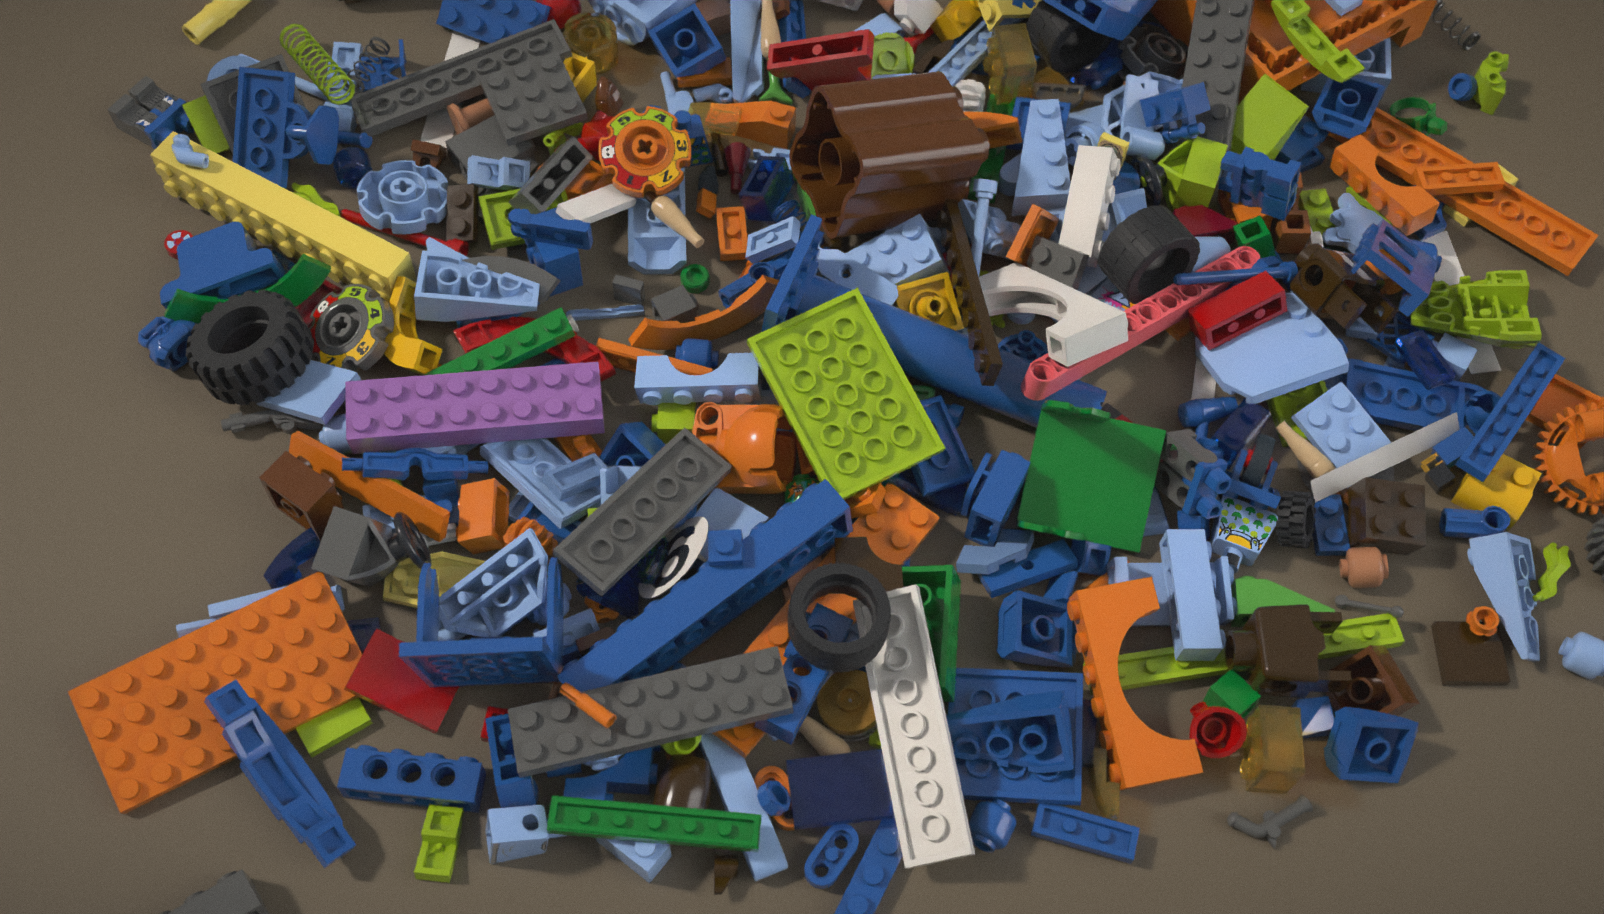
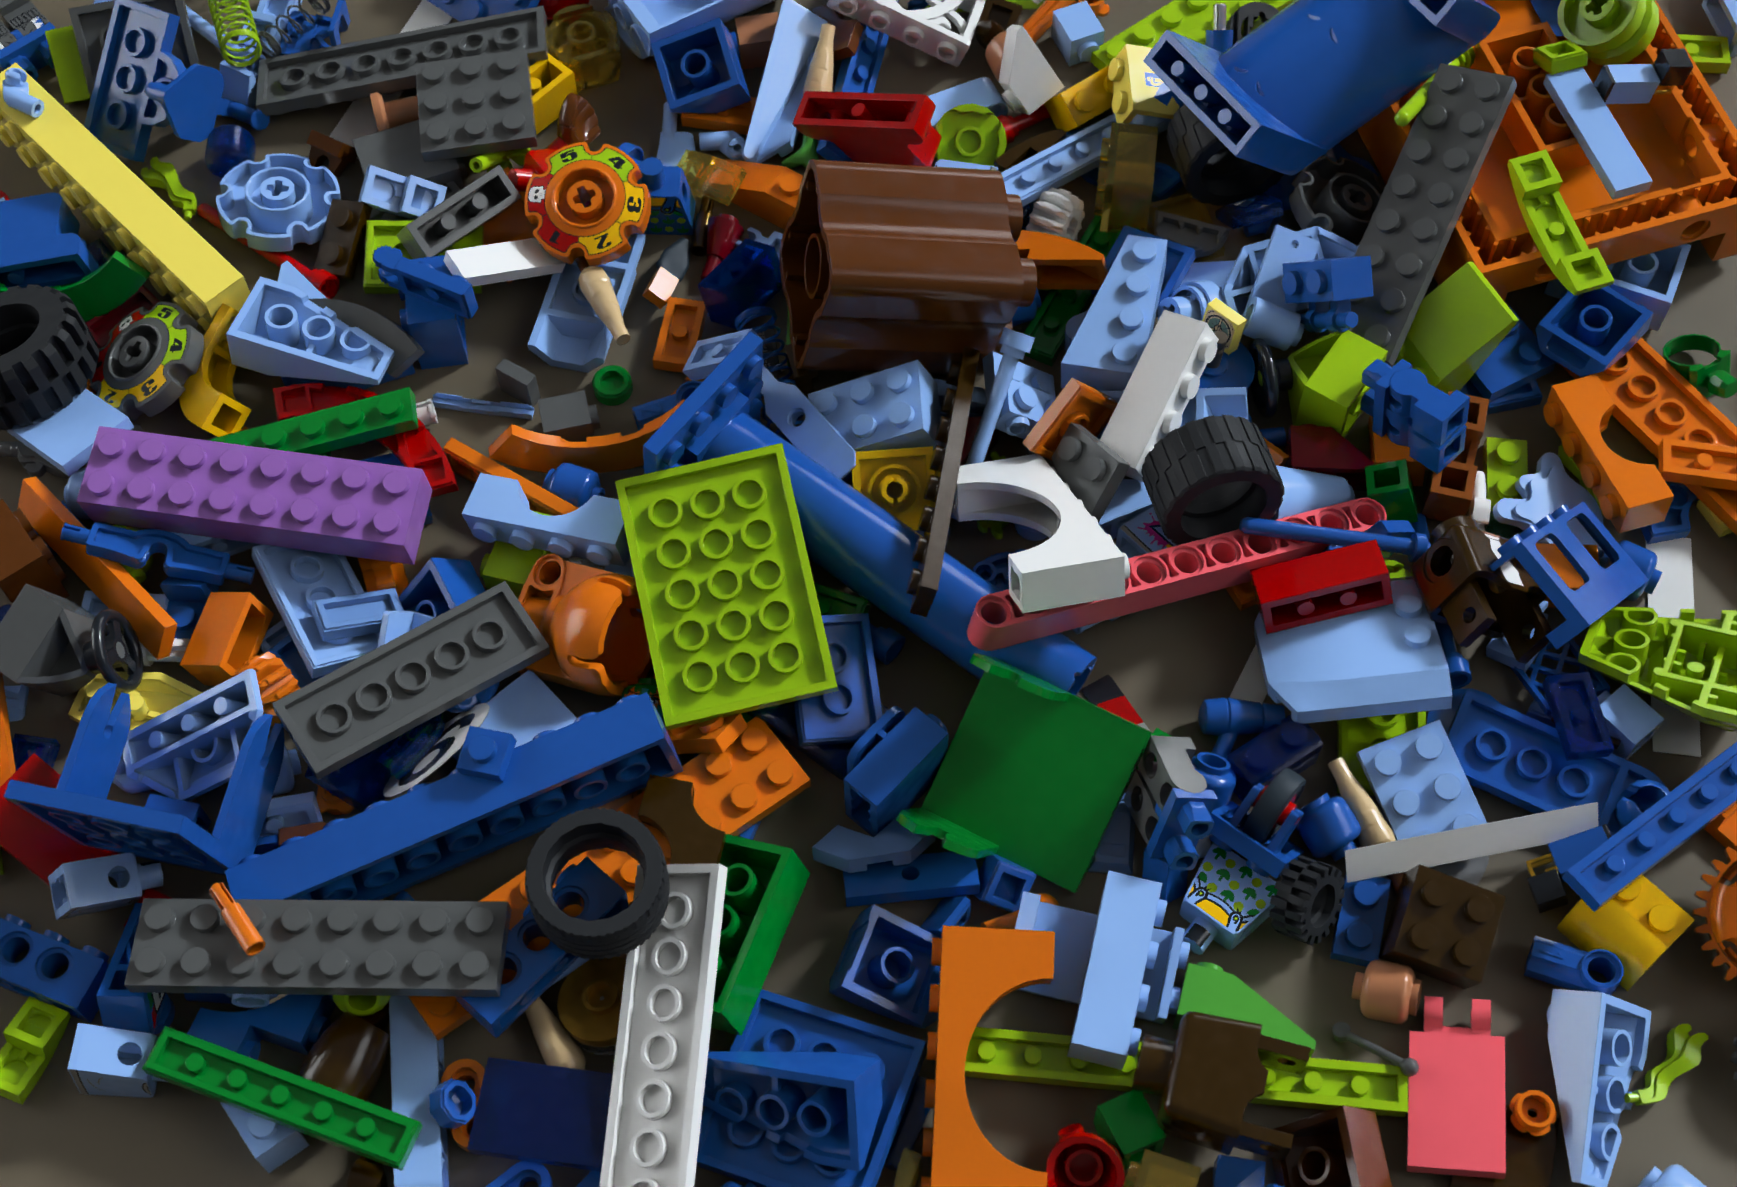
camera: 20 degrees right, 0 degrees up
(456, 711) = (85, 888): none -> light blue torso
(1292, 469) = (1328, 827): none -> blue head
(1432, 622) = (1457, 1096): none -> coral tile

